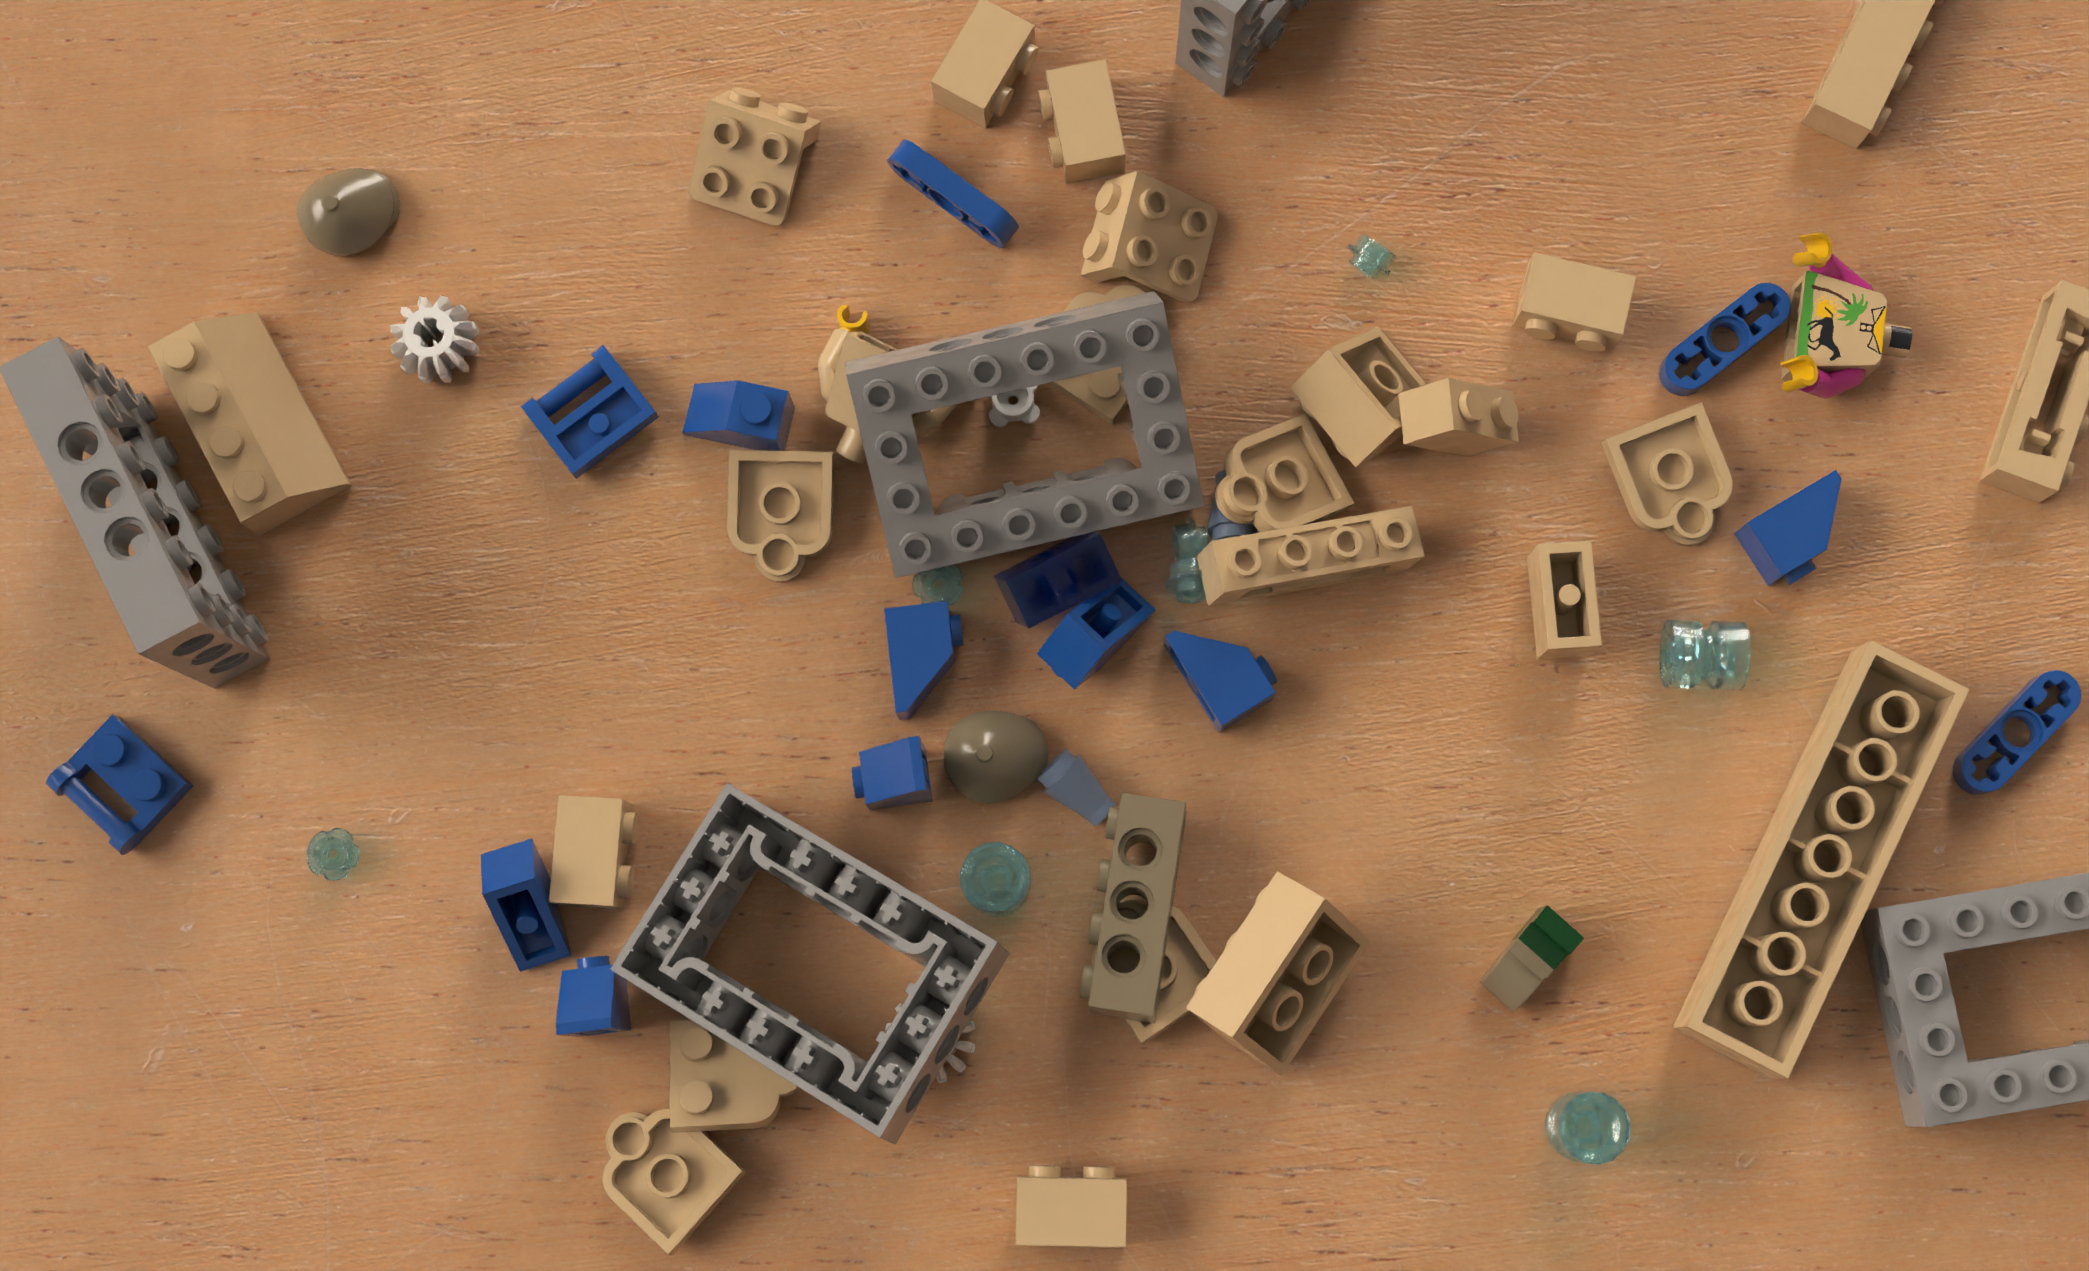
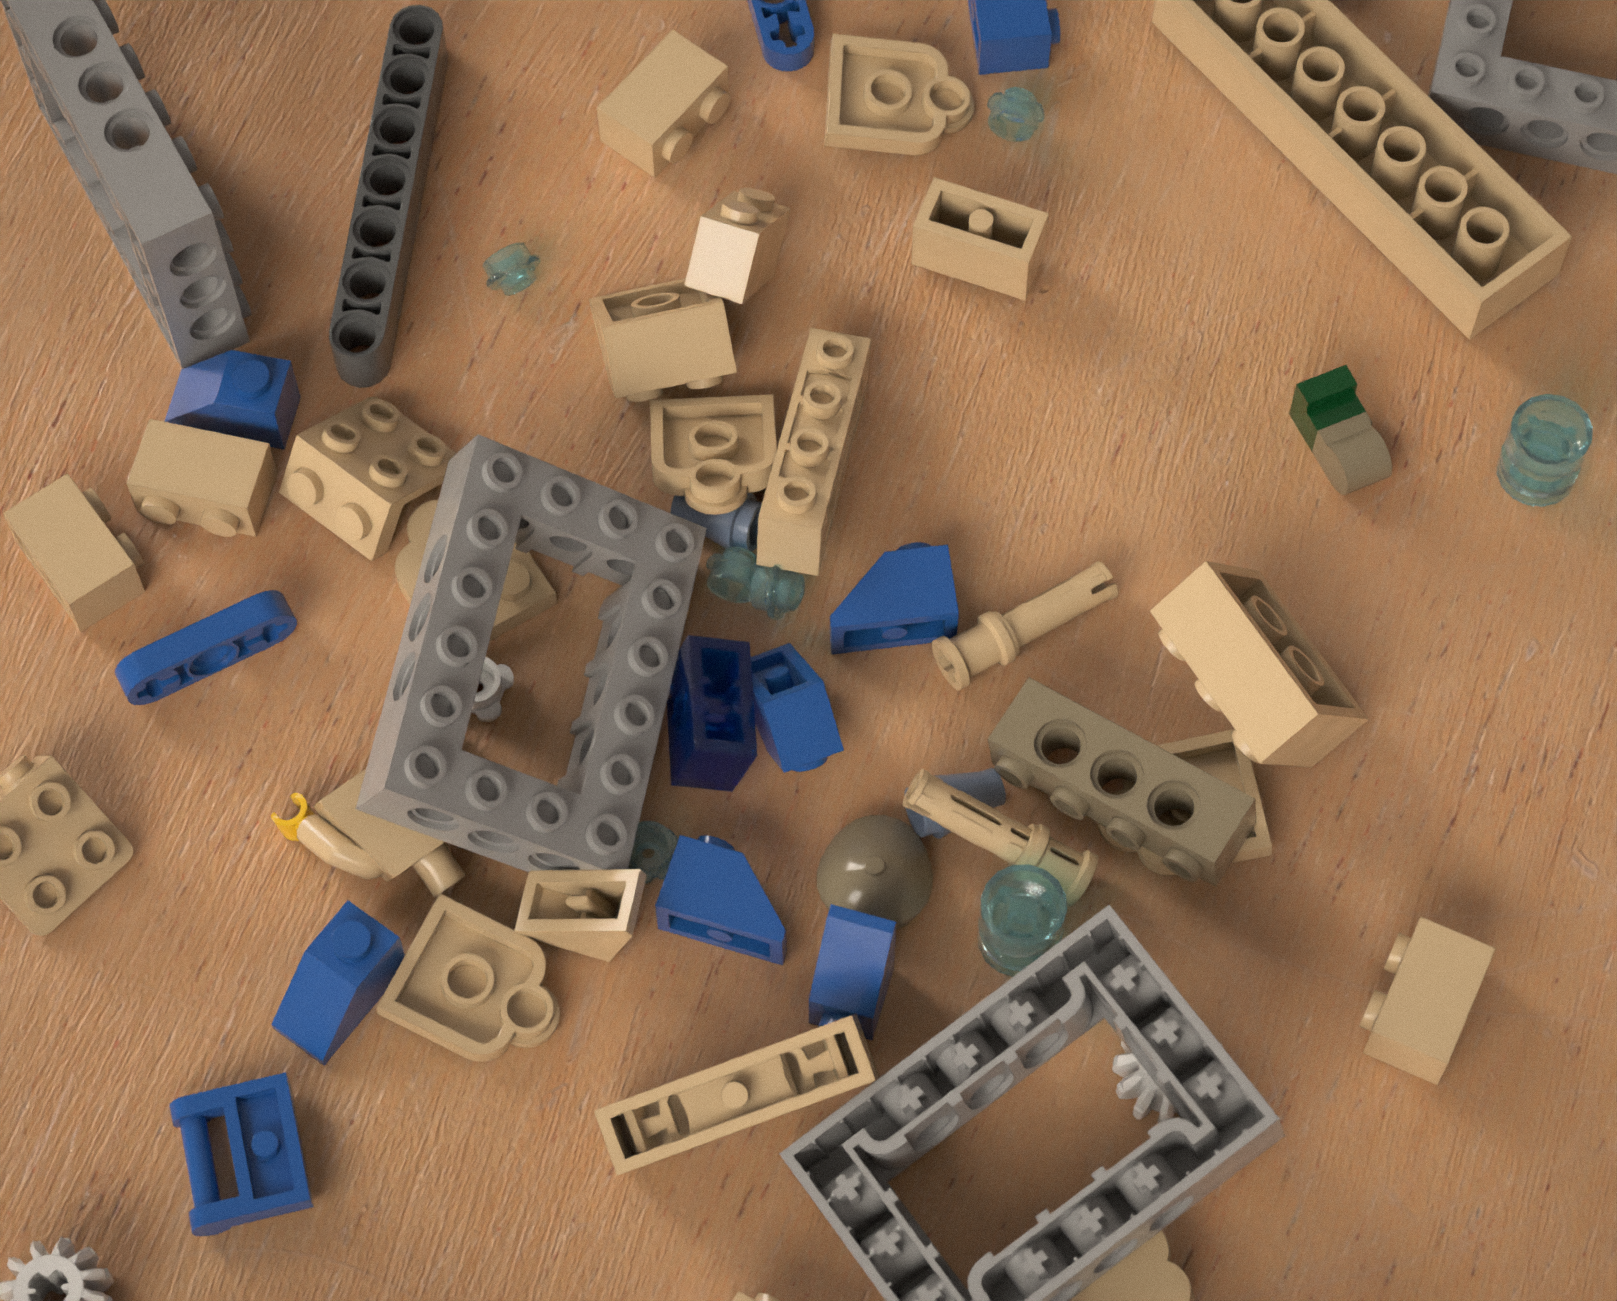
camera: 70 degrees left, 15 degrees down
(765, 734) = (736, 1094): none -> tan brick
(862, 555) = (582, 909): none -> tan slope
(1054, 860) = (1000, 834): none -> tan pin
(1162, 113) = (238, 397): none -> blue slope
(1228, 765) = (999, 637): none -> tan pin
(1406, 116) = (393, 216): none -> dark grey beam
(1703, 578) = (1014, 114): none -> clear light blue plate
(1713, 654) = (1096, 141): clear light blue wheel -> none

